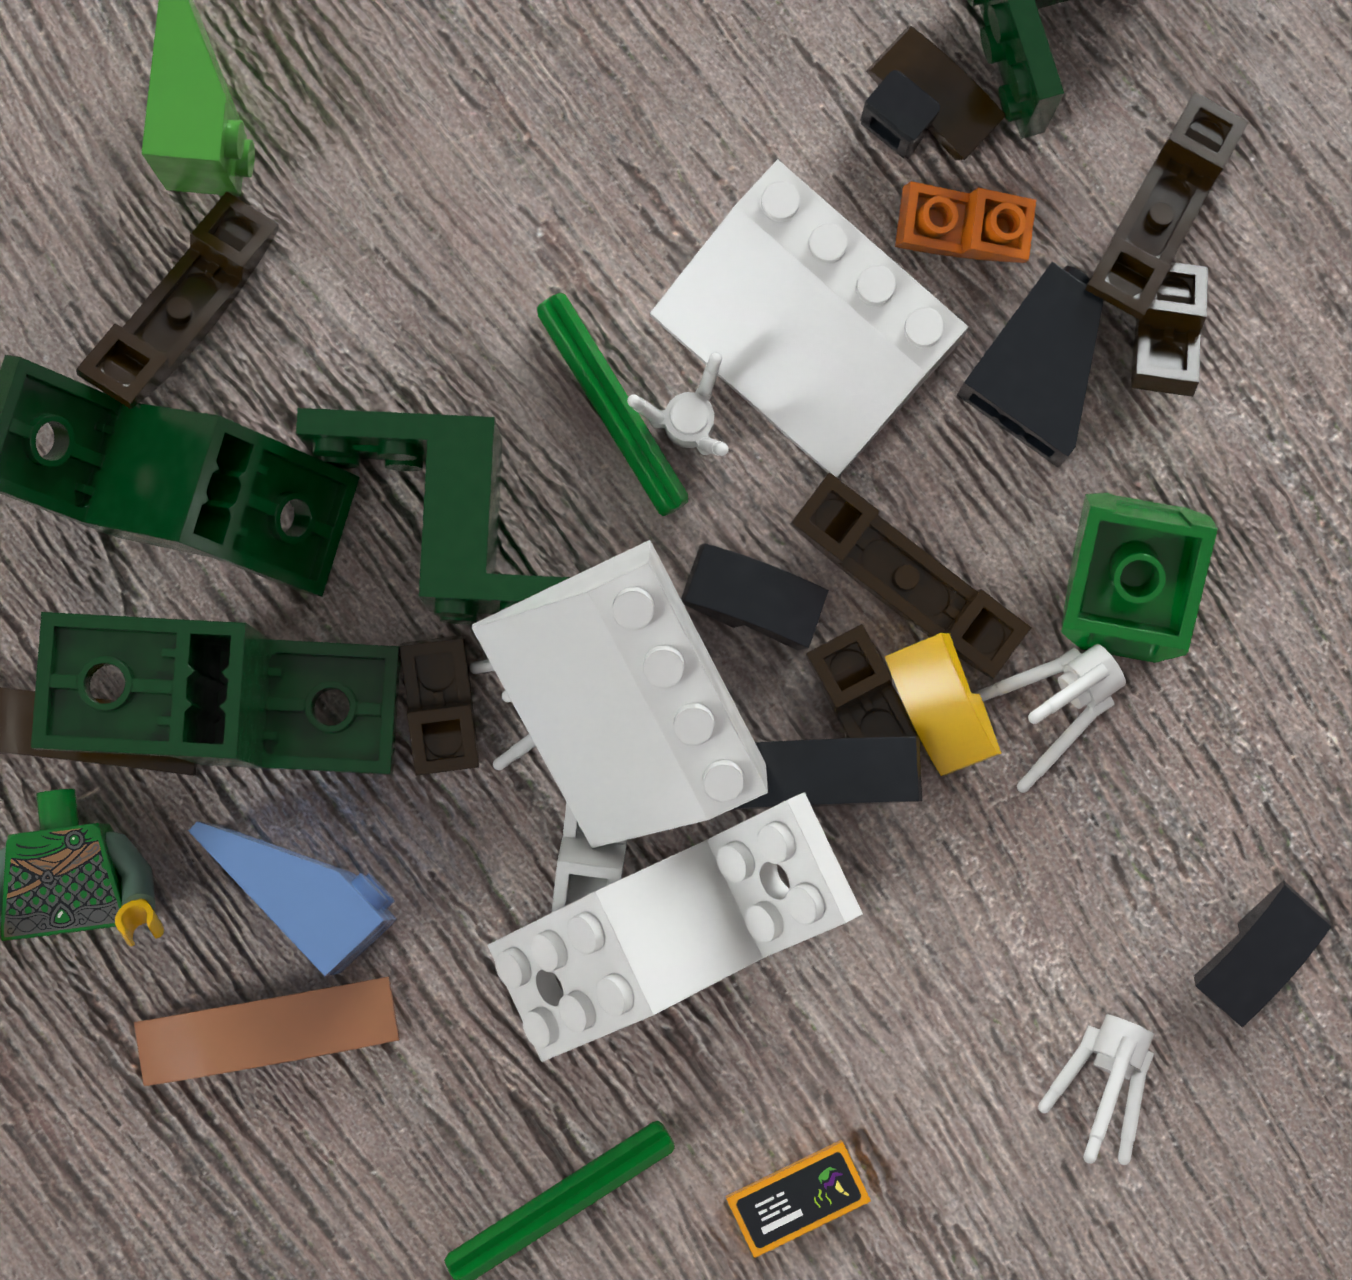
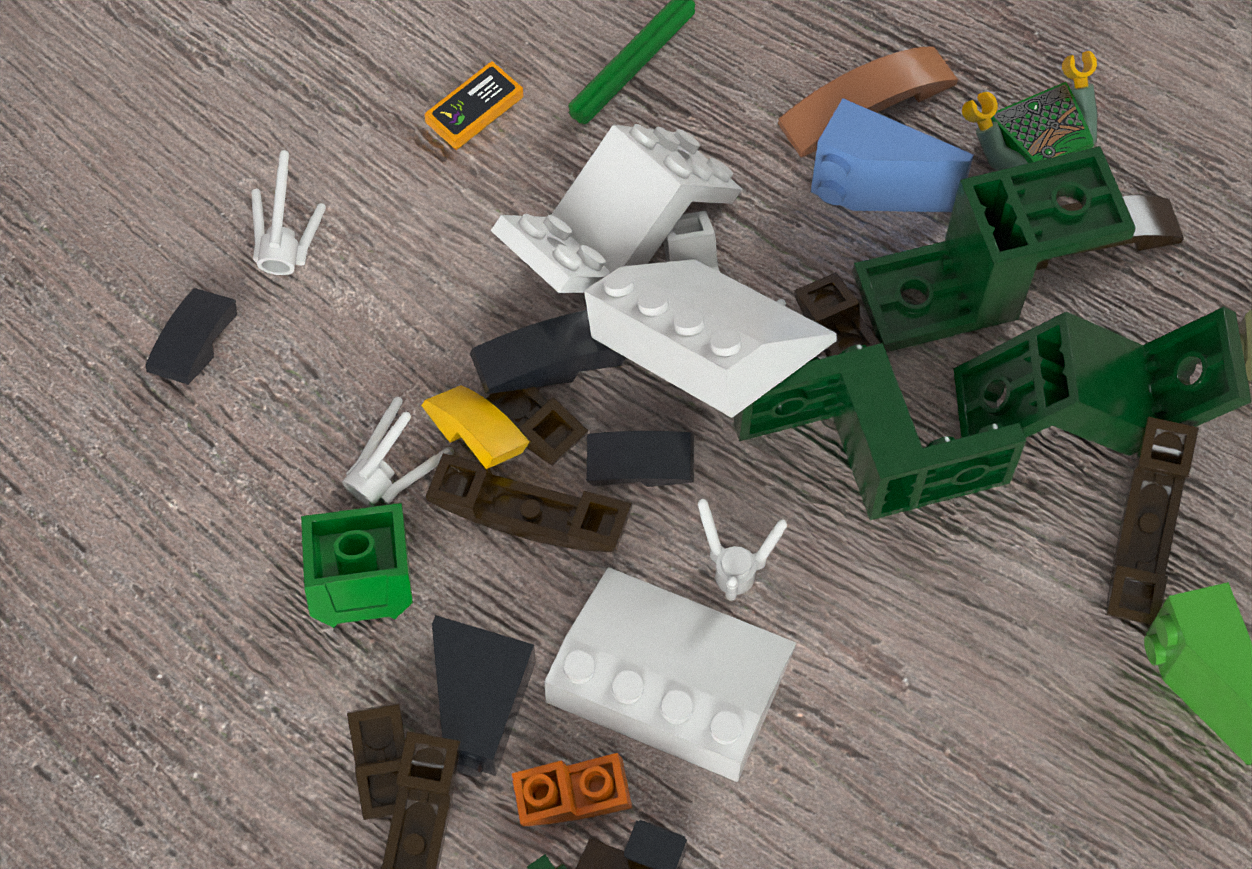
camera: 165 degrees right, 20 degrees down
(611, 404) = (801, 567): green axle -> none

